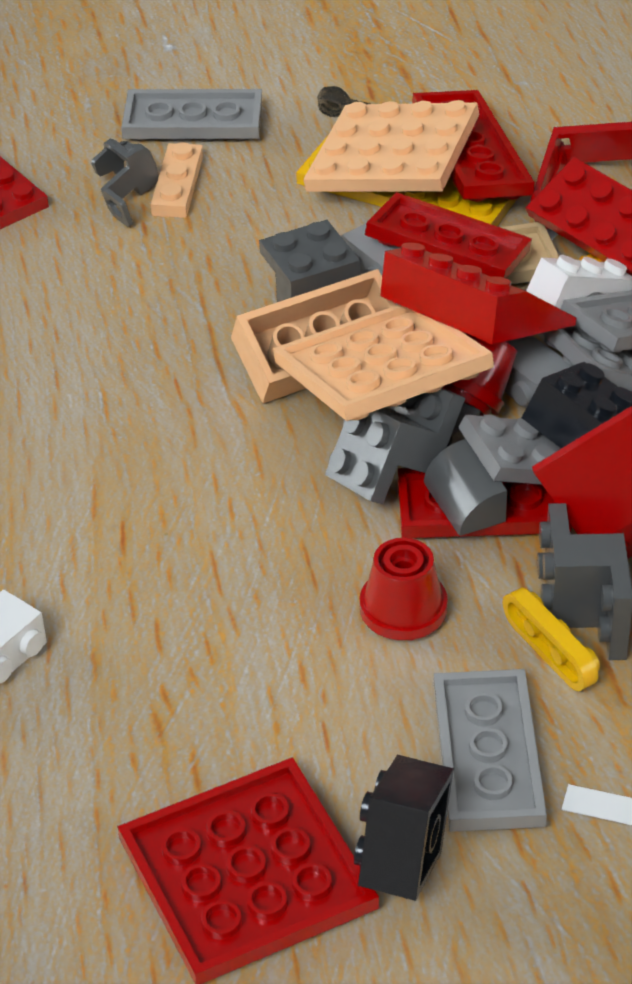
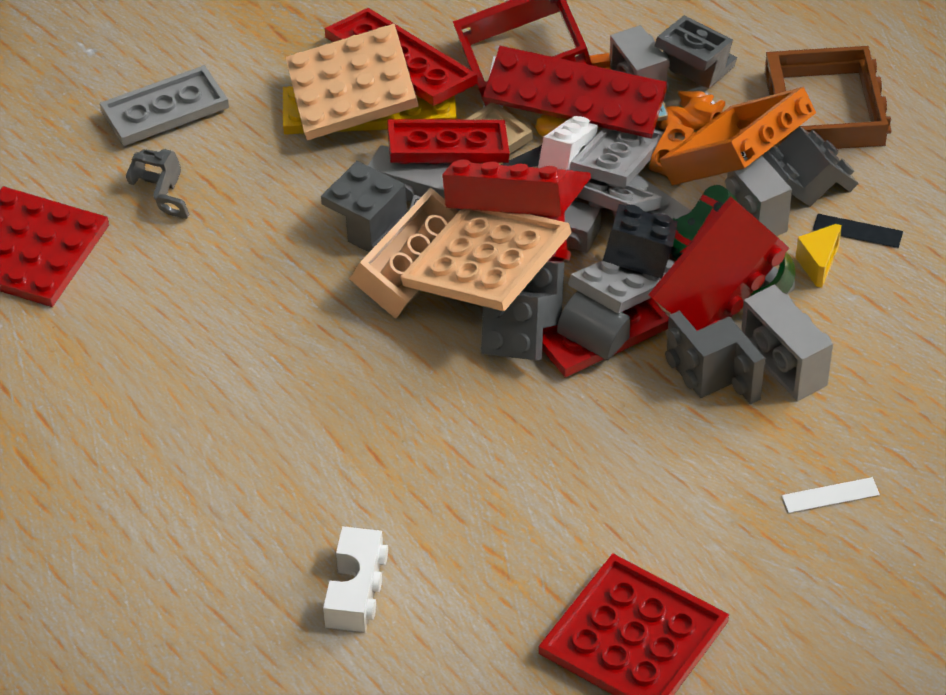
camera: 30 degrees left, 5 degrees up
(177, 180) = (195, 166): light nougat plate -> none
(333, 100) = (268, 55): clear smoke plate -> none
(403, 591) = (602, 414): red piece -> none
(403, 826) = (723, 563): black brick -> none
(493, 750) = (724, 494): light grey plate -> none
(551, 639) = (712, 405): yellow plate -> none

